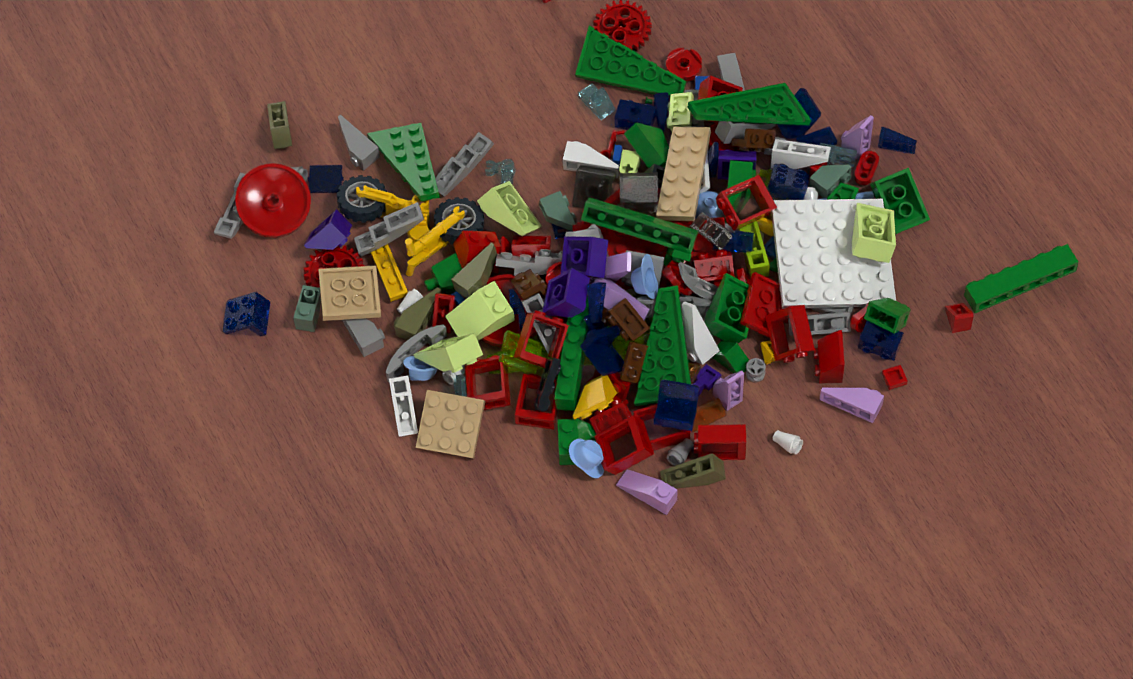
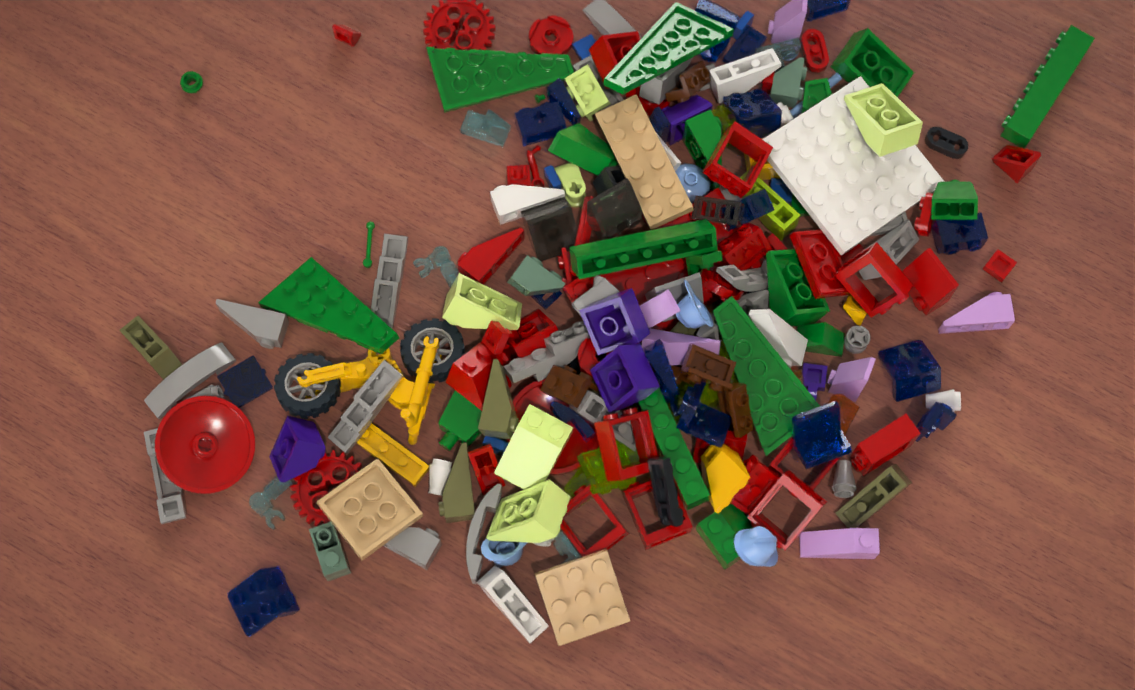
camera: 35 degrees left, 10 degrees up
(286, 256) = (261, 501): none -> clear light blue bar
(293, 154) = (188, 377): none -> light grey slope
(456, 146) = (368, 262): none -> green hinge
(503, 231) = (496, 337): none -> red tile
(537, 184) = (487, 257): none -> red slope
(597, 142) = (518, 175): none -> red tile
(765, 443) = (937, 416): none -> clear blue bracket
(778, 410) = (911, 369): none -> clear blue bracket
(826, 122) = (743, 23): none -> blue tile
(916, 279) = (946, 142): none -> black beam

